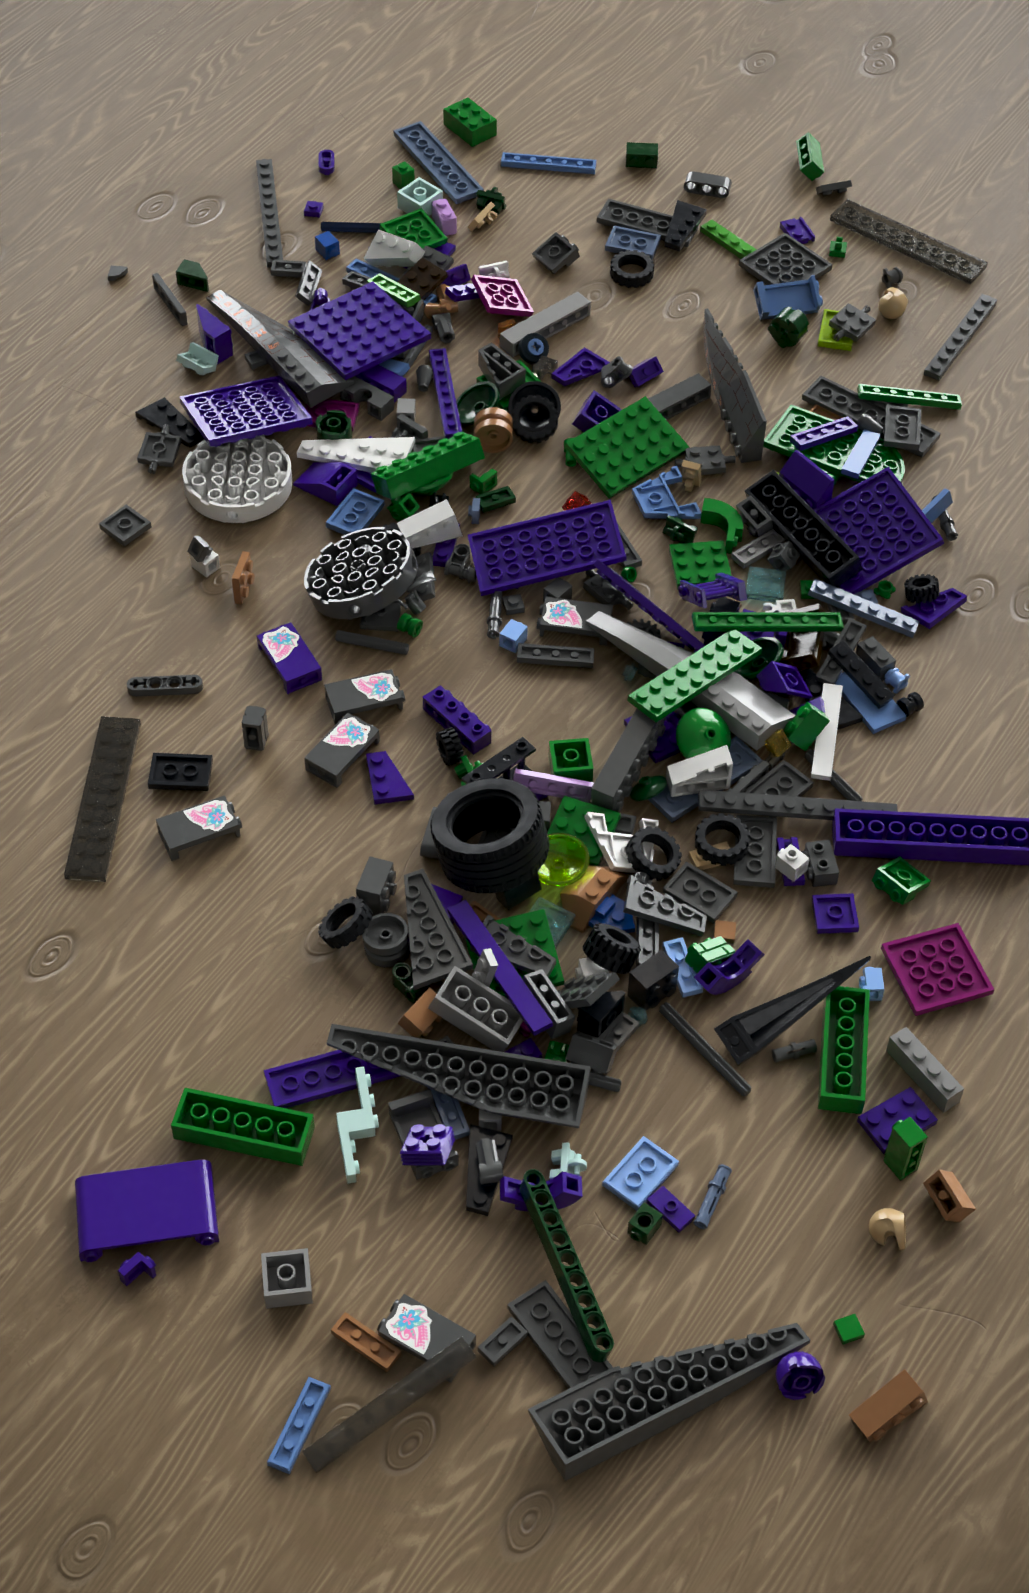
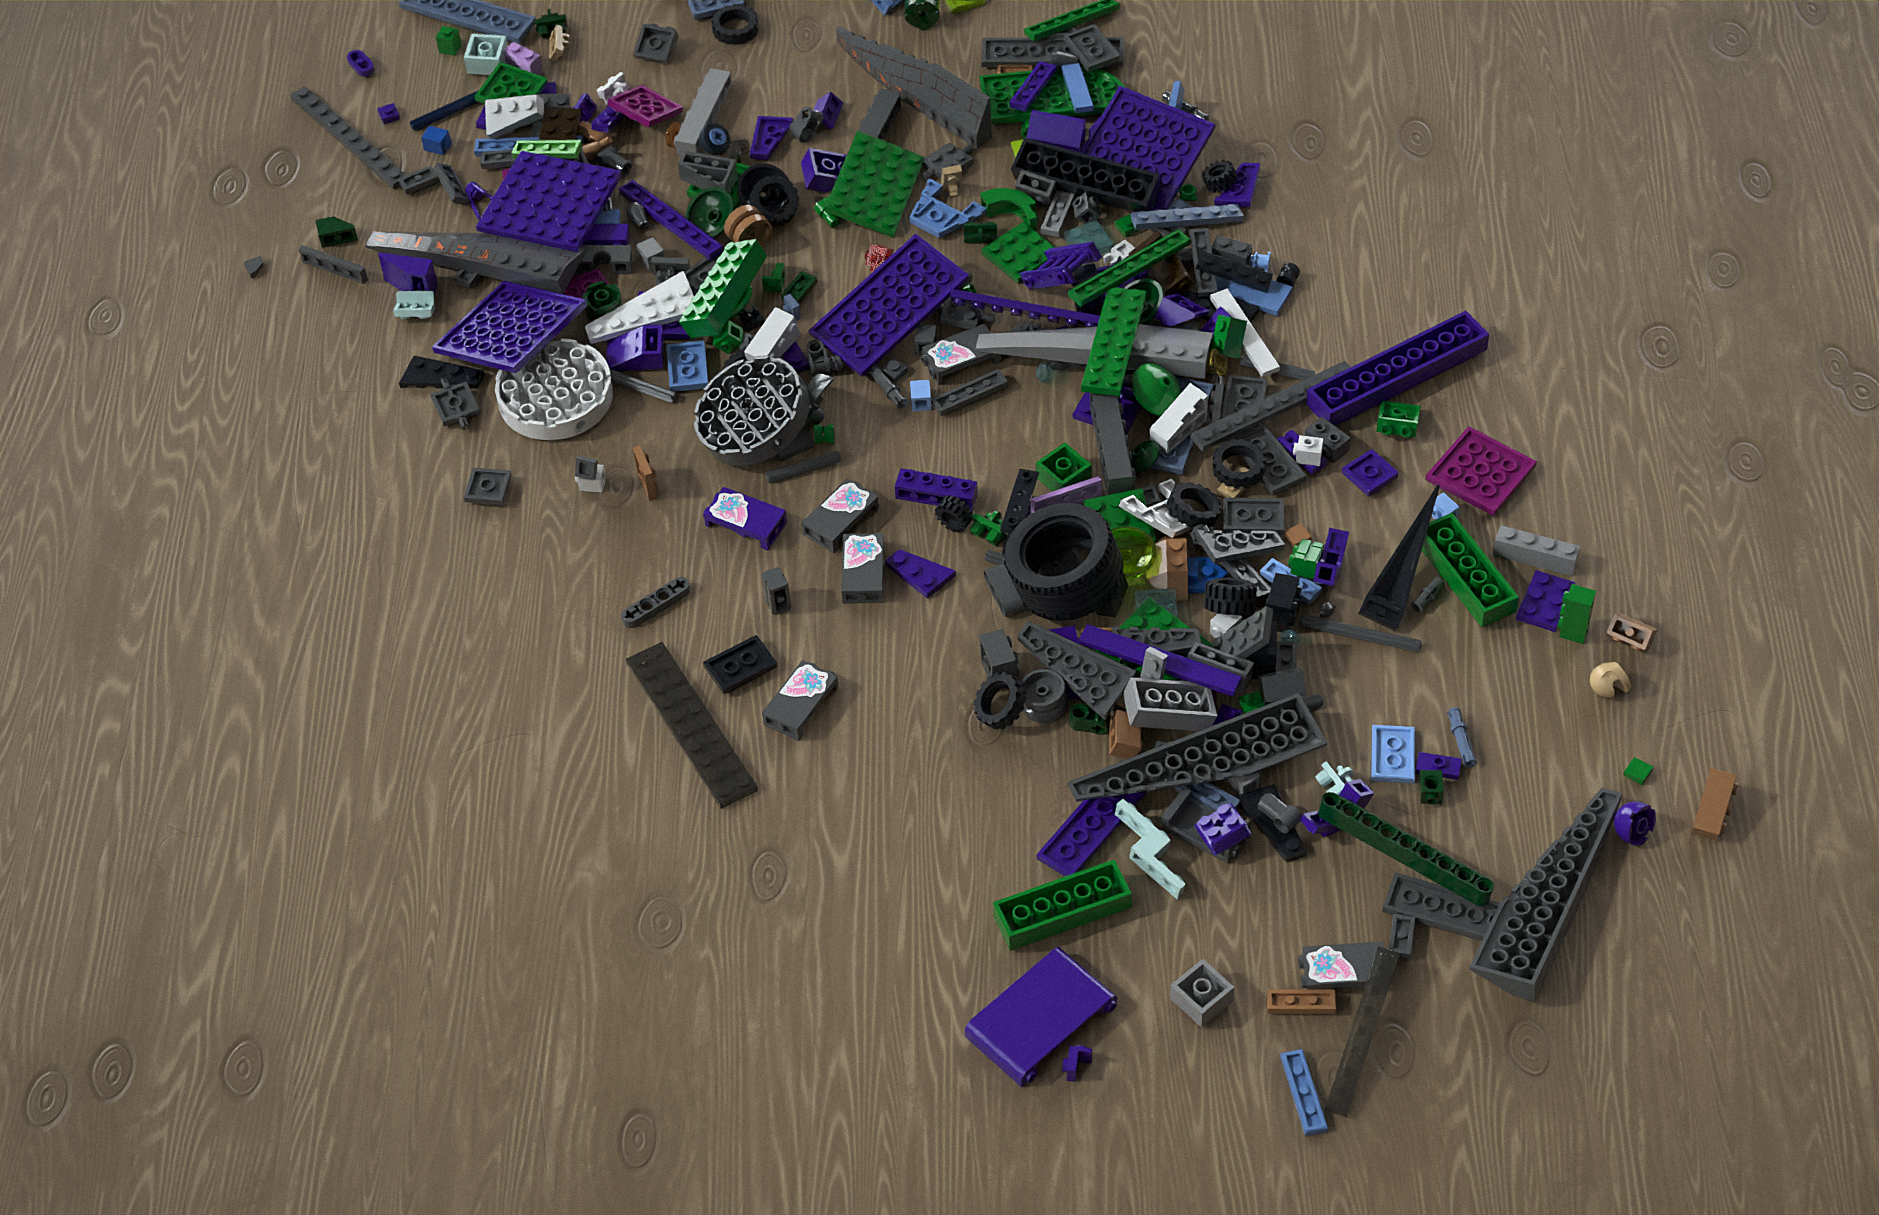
camera: 30 degrees left, 0 degrees up
(308, 511) = (642, 386): none -> dark grey axle
(693, 1011) = (1327, 609): none -> dark grey piece

